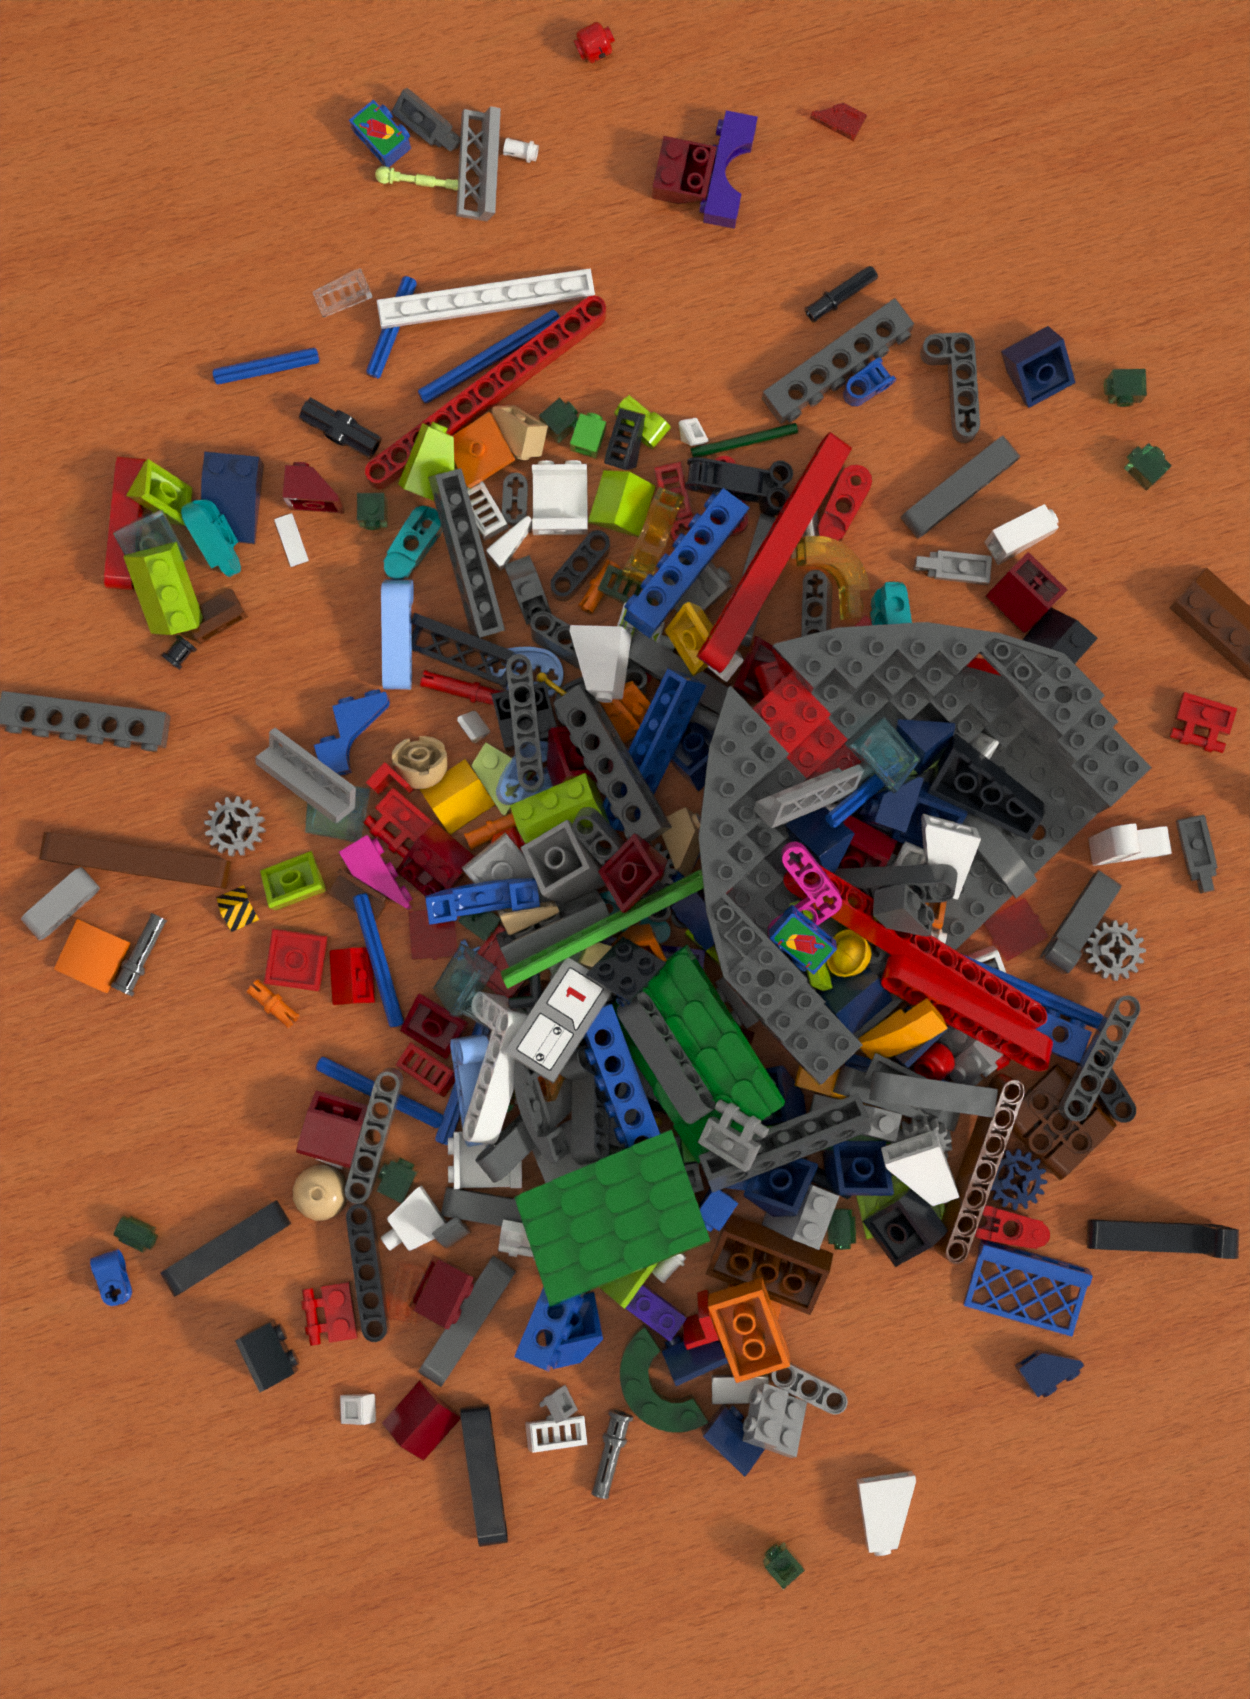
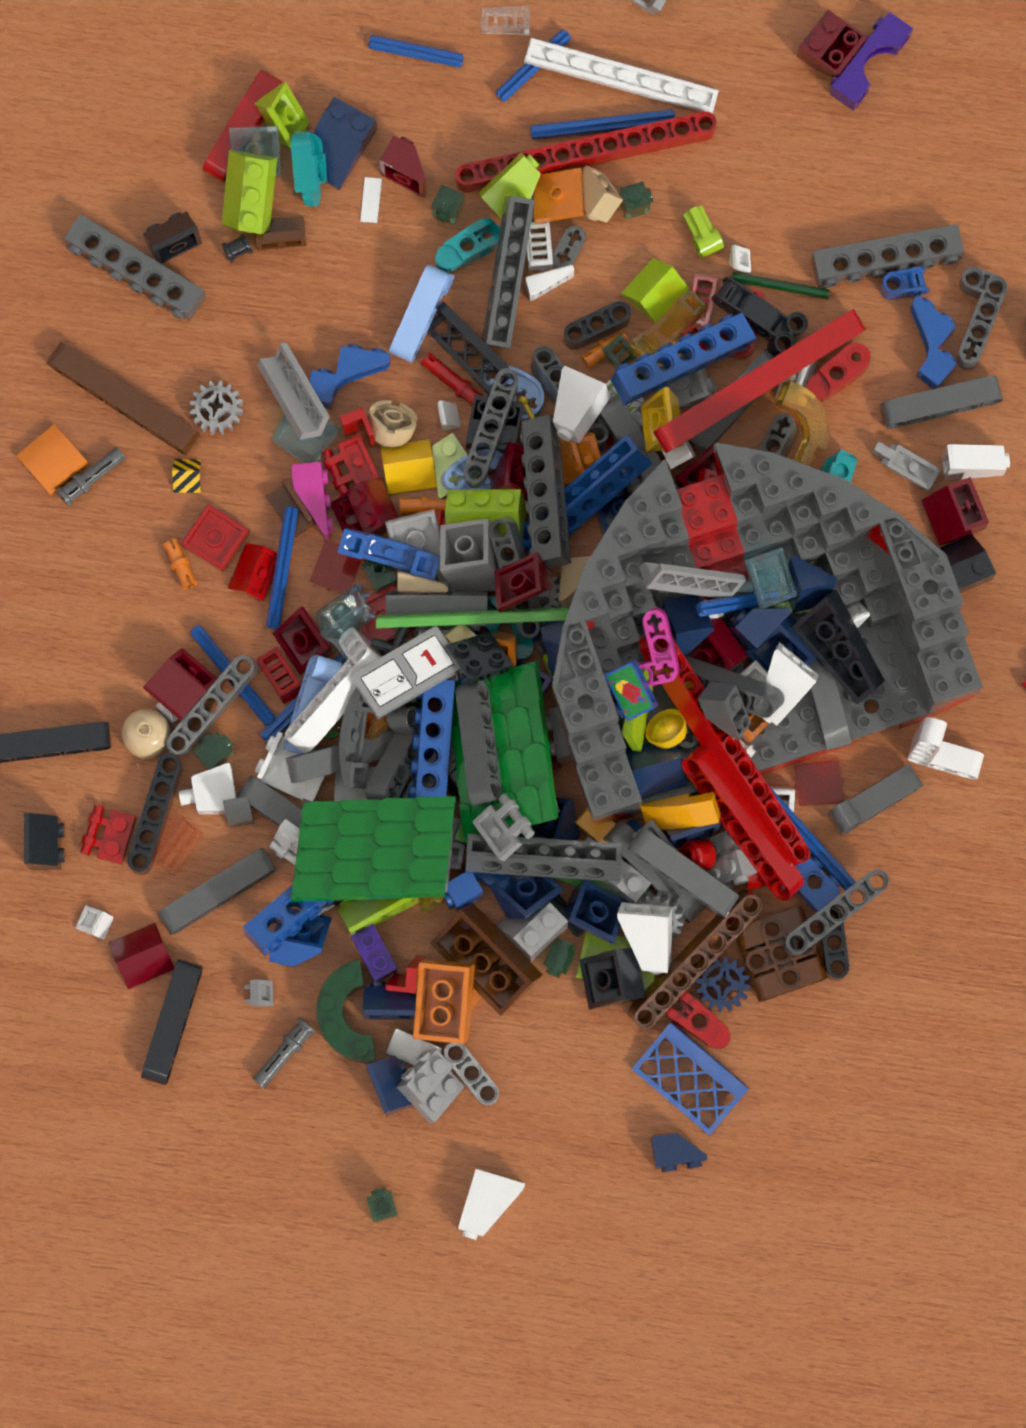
camera: 25 degrees right, 5 degrees down
(60, 903) = (46, 405): light grey beam -> none
(107, 671) = (172, 237): none -> black slope
(292, 881) = (242, 474): lime slope -> none
(340, 427) = (453, 127): black piece -> none
(442, 1292) = (208, 855): dark red slope -> none
(527, 587) = (545, 322): dark grey slope -> none
(543, 1425) = (229, 1001): white slope -> none
(560, 498) = (606, 264): white panel -> none
(588, 435) = (653, 223): bright green brick -> none
(632, 451) = (670, 242): black slope -> none
(668, 1266) = (403, 922): white pin -> none
(832, 299) = (904, 203): black axle -> none
(841, 119) = (984, 61): clear red tile -> none
(920, 417) = (934, 331): none -> blue arch
(1114, 962) = (902, 841): light grey gear -> none
(1198, 851) = (1000, 787): dark grey hinge -> none
(1205, 1239) = (819, 1086): black beam -> none

